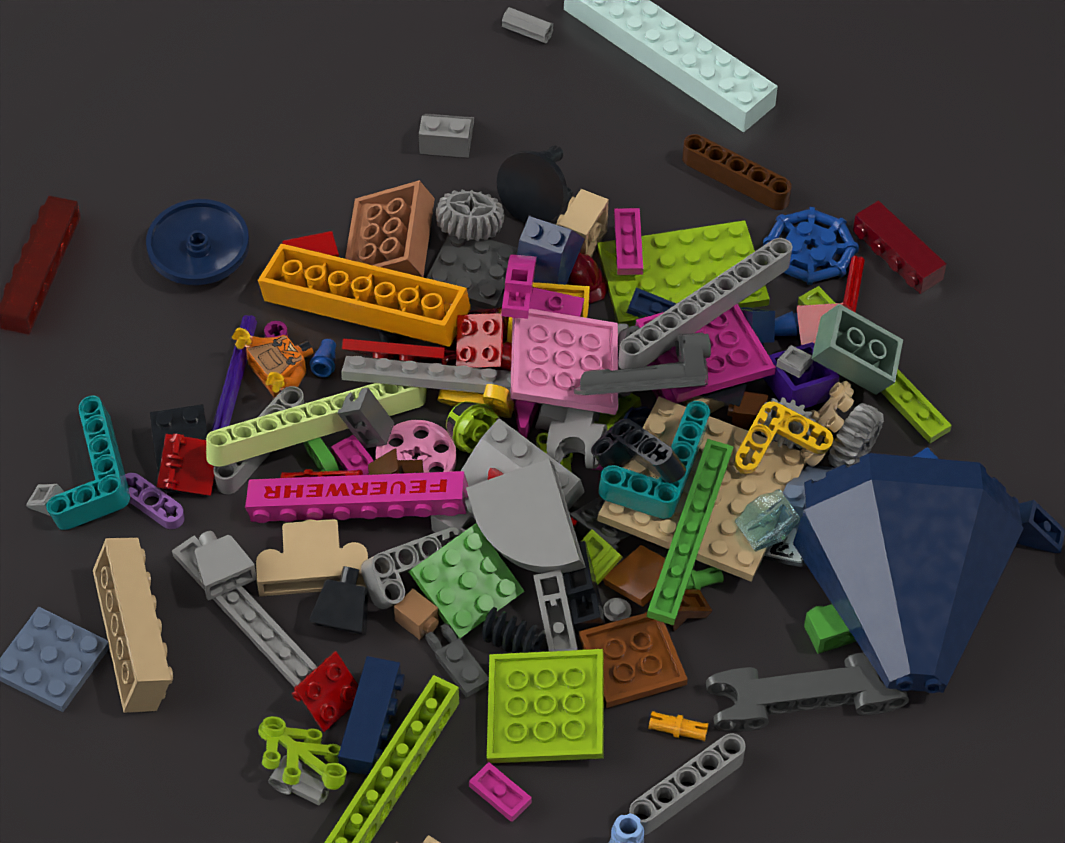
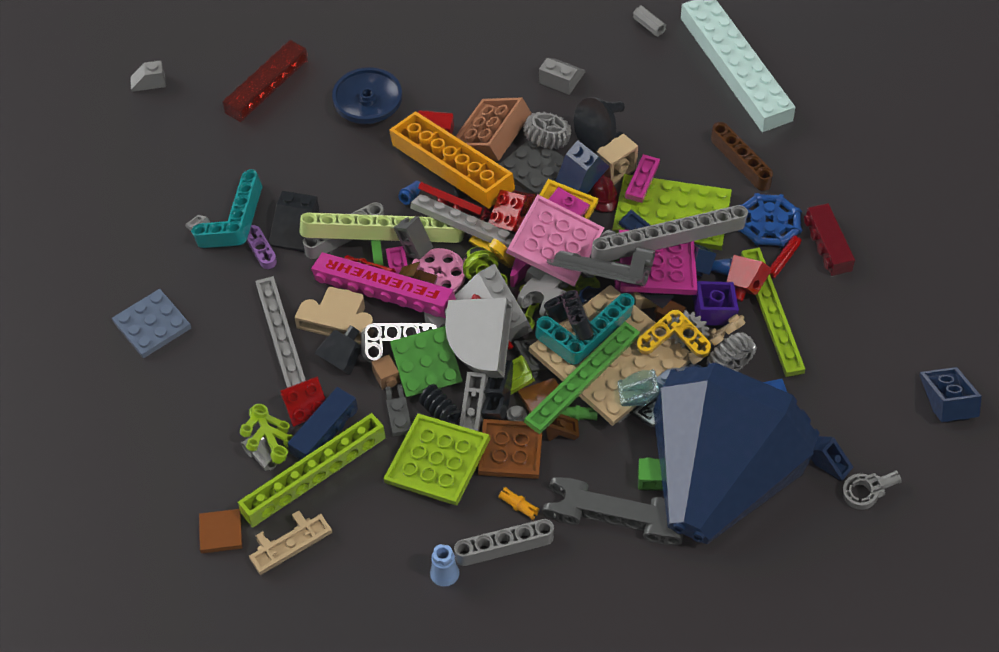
camera: 25 degrees right, 0 degrees up
(132, 625) = (205, 318): tan brick -> none
(185, 465) = (286, 231): red hinge -> none
(222, 565) = (277, 299): light grey torso -> none
(233, 379) = (352, 183): dark purple axle -> none
(274, 359) = (378, 183): torso -> none
(275, 326) = (389, 172): magenta bush -> none
(500, 792) = (381, 503): dark pink plate -> none
(518, 286) = (545, 180): dark pink slope -> none
(794, 361) = (712, 290): light grey tile -> none
(857, 349) = (758, 295): sand green brick -> none

